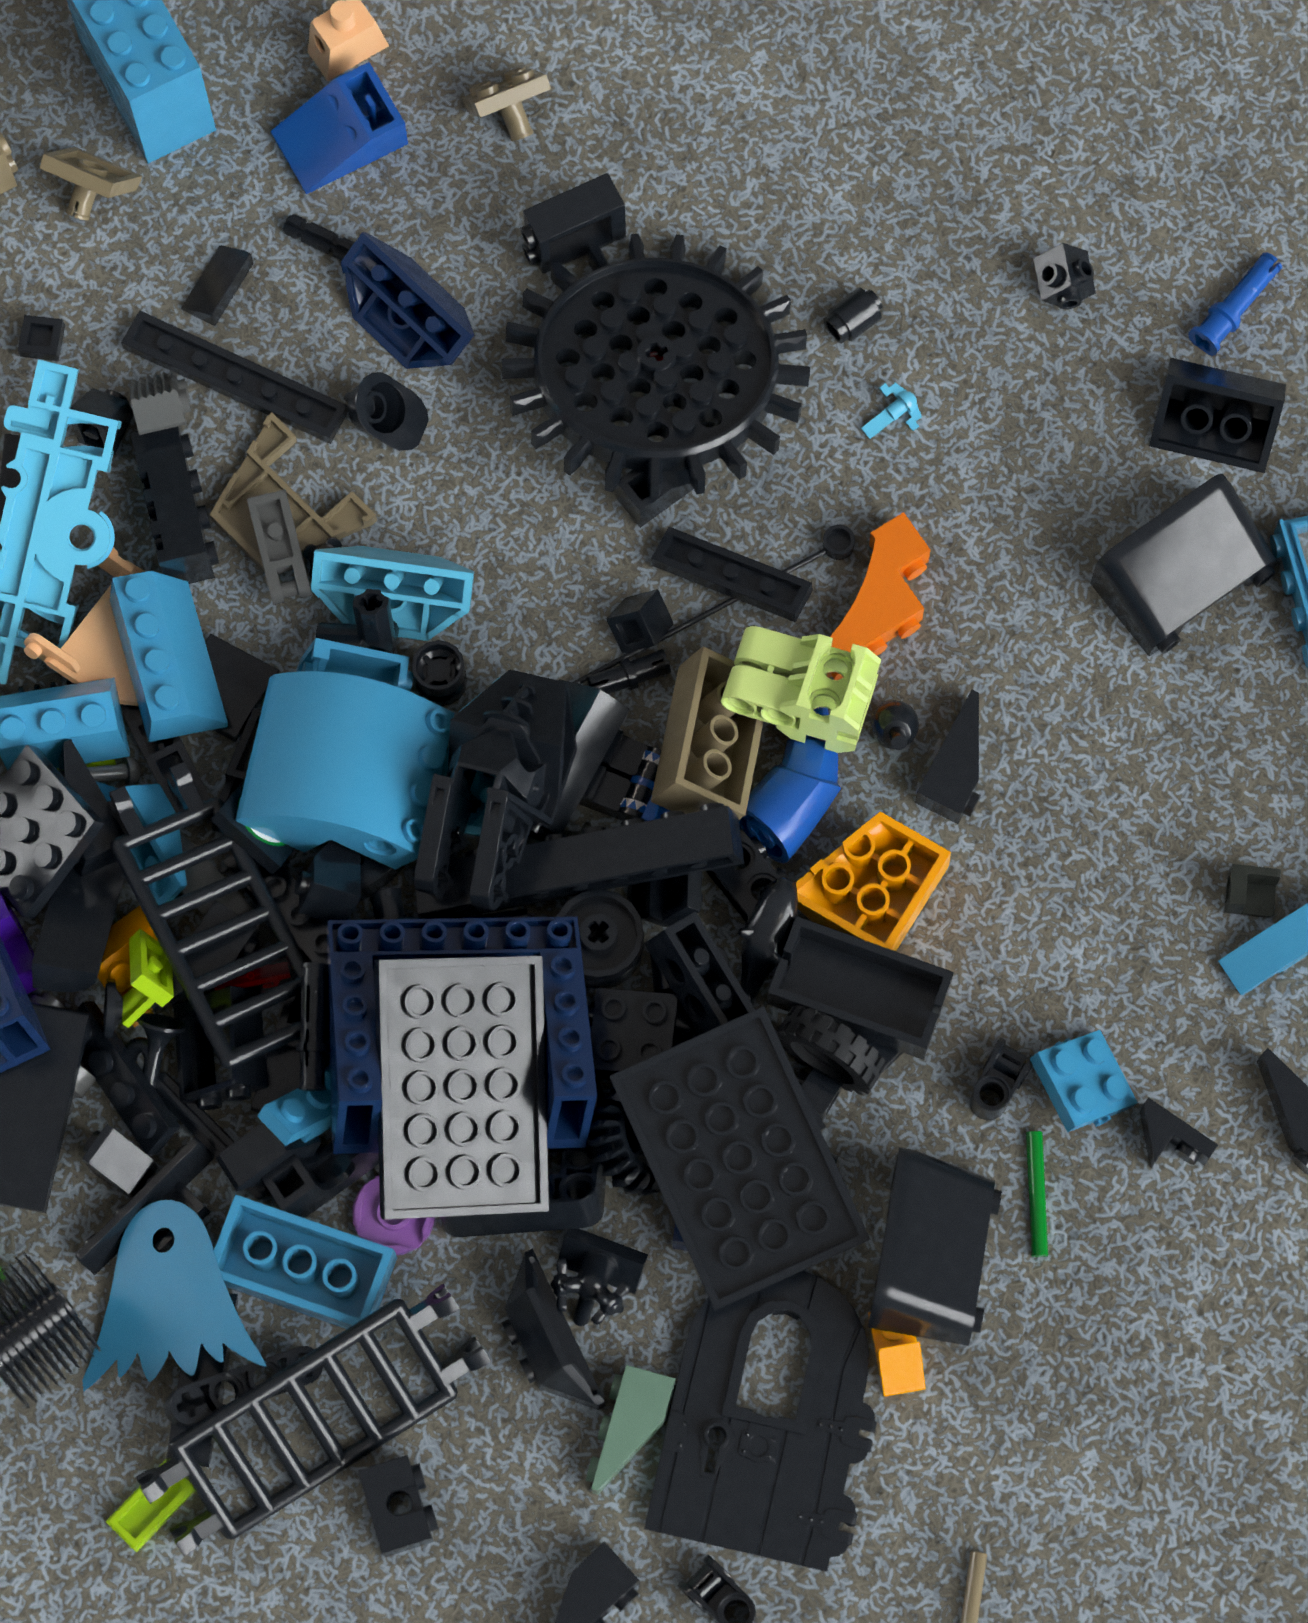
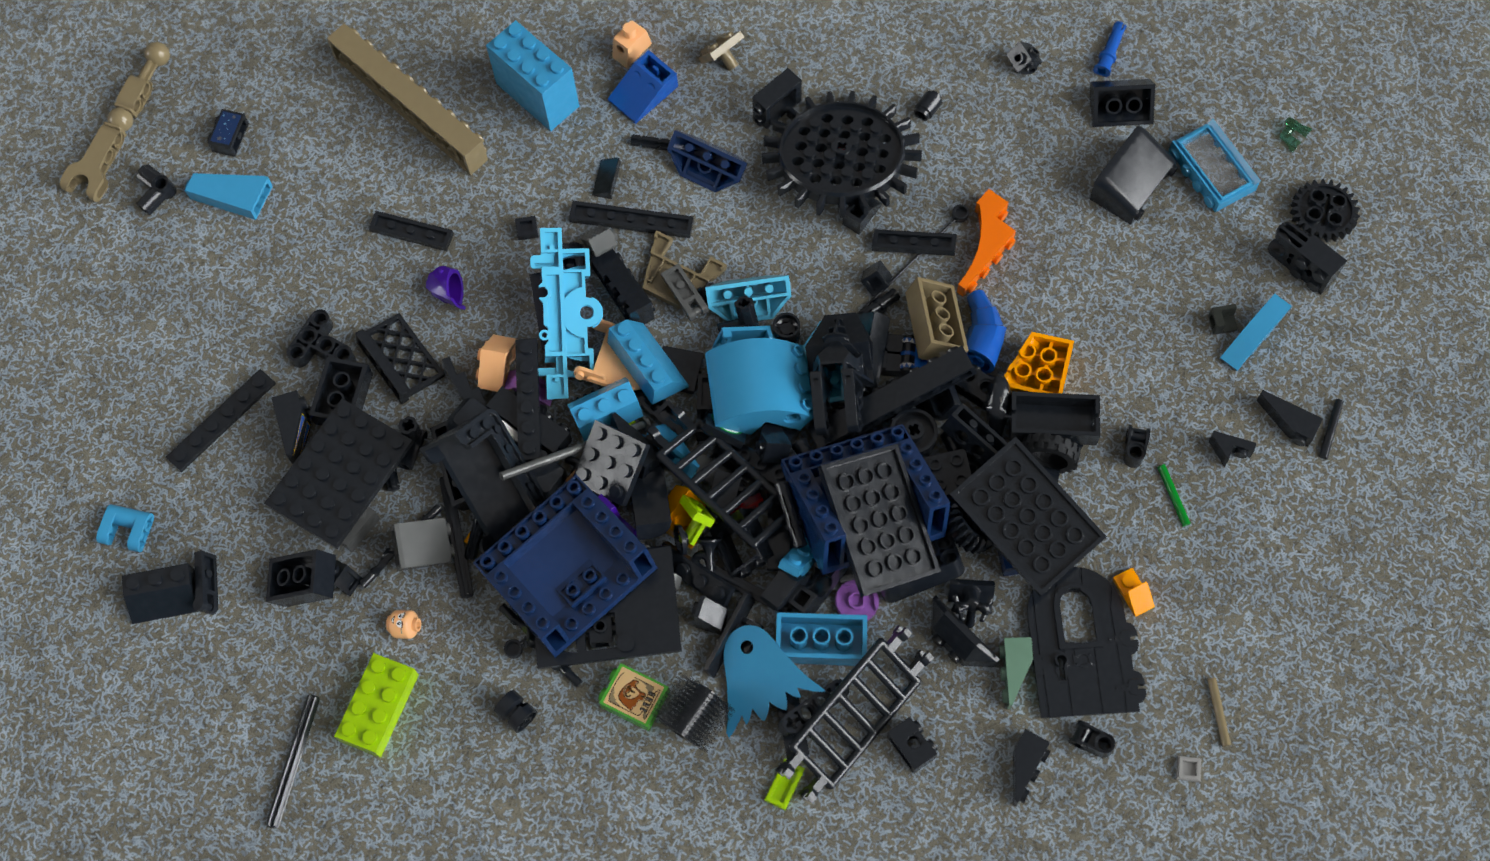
camera: 15 degrees left, 5 degrees down
(91, 177) = (525, 143): dark tan tile -> none
(387, 411) = (714, 213): black piece -> none
(786, 679) = (967, 280): yellowish green connector -> none
(895, 724) = (1020, 291): black piece -> none
(905, 402) = (967, 139): medium azure piece -> none
(933, 1250) = (1136, 535): black windscreen -> none
(954, 774) = (1059, 302): black slope -> none
(1083, 1081) = (1177, 433): dark azure plate -> none

